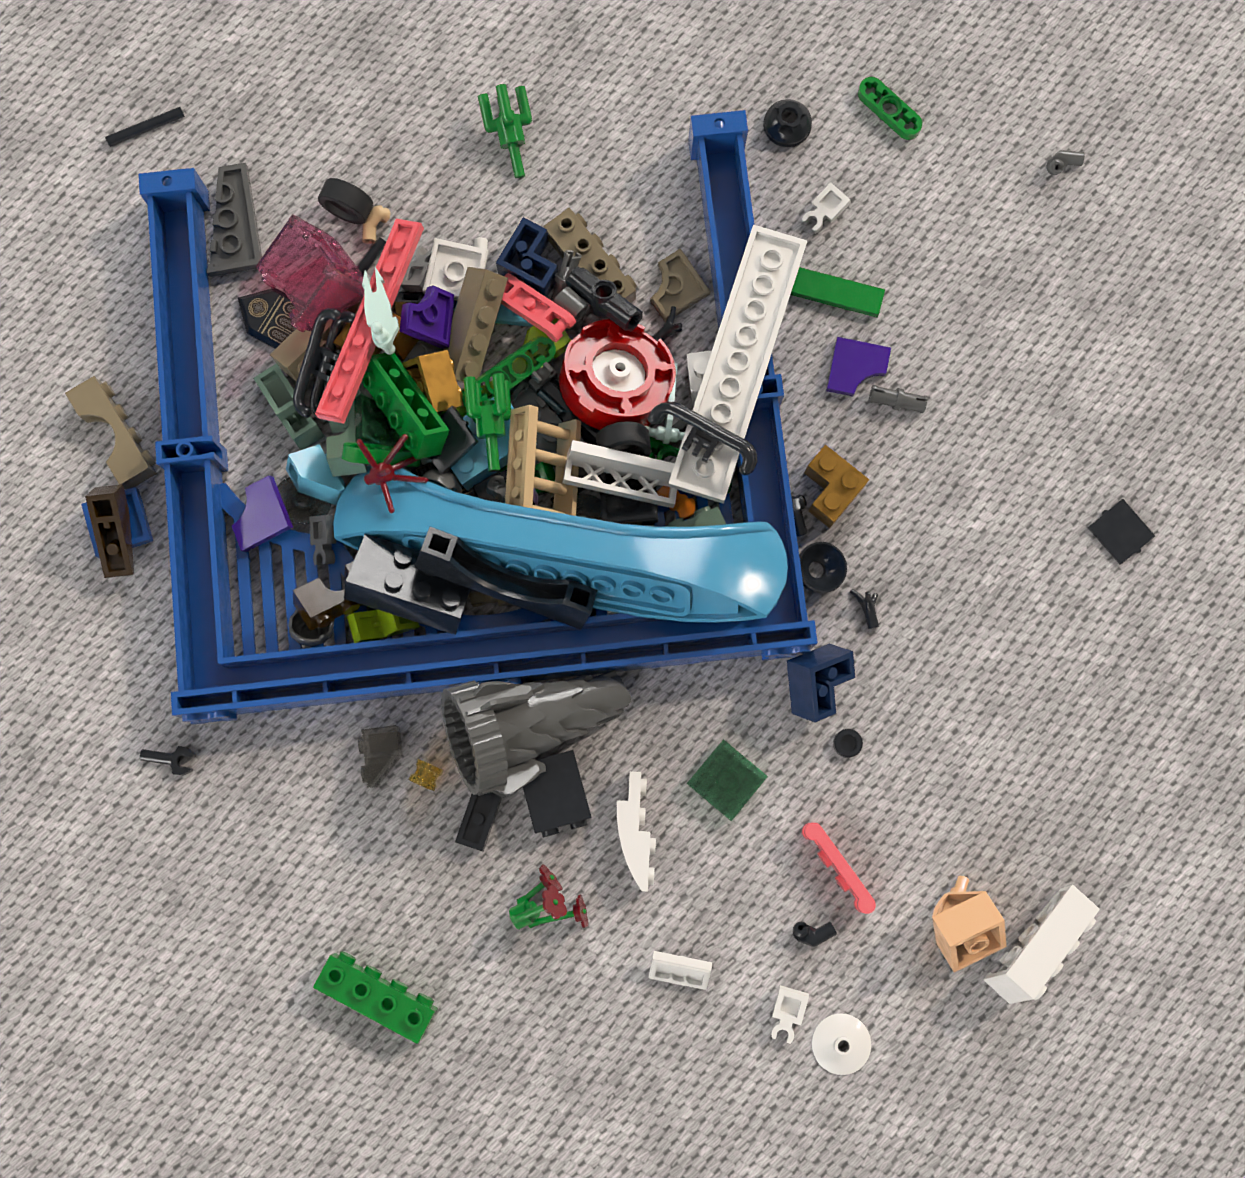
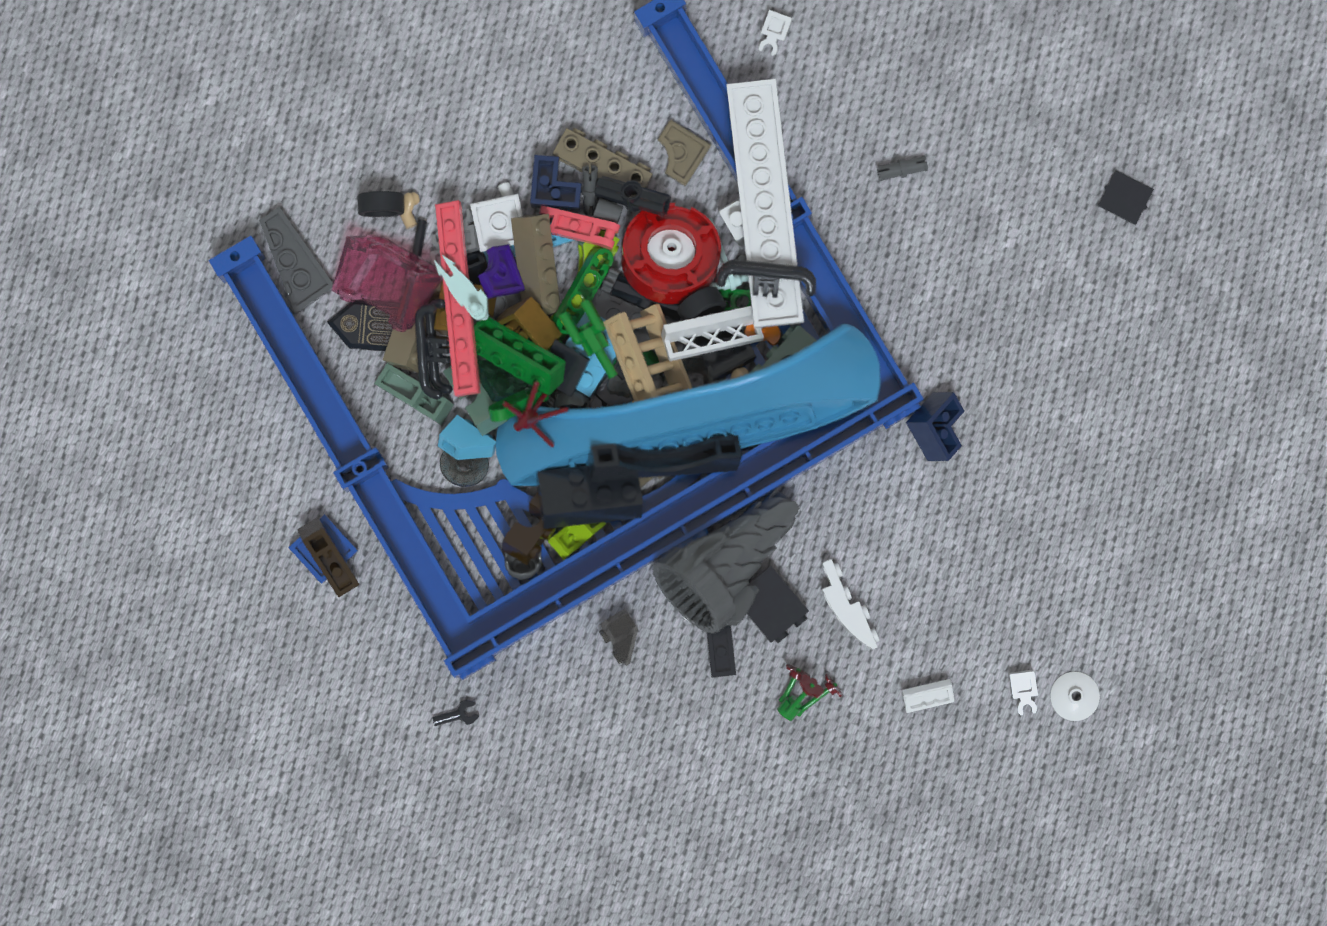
camera: 25 degrees left, 5 degrees up
(128, 460) = (256, 462): dark tan arch -> none
(144, 126) = (176, 210): black bar -> none
(263, 515) = (442, 492): tile -> none
(322, 537) = (498, 486): dark grey plate -> none
(376, 997) = (706, 820): green brick -> none
(426, 775) = (665, 636): clear yellow wheel -> none
(508, 124) = (481, 77): green plant -> none
(668, 328) = (691, 192): black bar -> none
(727, 780) = (900, 535): clear green plate -> none
(798, 503) = (859, 290): black arm -> none
(812, 936) = (1017, 625): black arm -> none
(833, 566) = (908, 327): black piece -> none
(838, 292) = (816, 98): green tile -> none
(840, 485) = (886, 259): pearl gold brick -> none
(846, 876) = (1024, 568): coral plate -> none
(847, 743) = (981, 464): black tile -> none
(855, 362) = (854, 153): dark purple tile -> none
(868, 607) = (951, 349): black bar -> none
(967, 926) = (1131, 564): light nougat piece -> none
(1044, 947) = (1196, 553): white wedge -> none

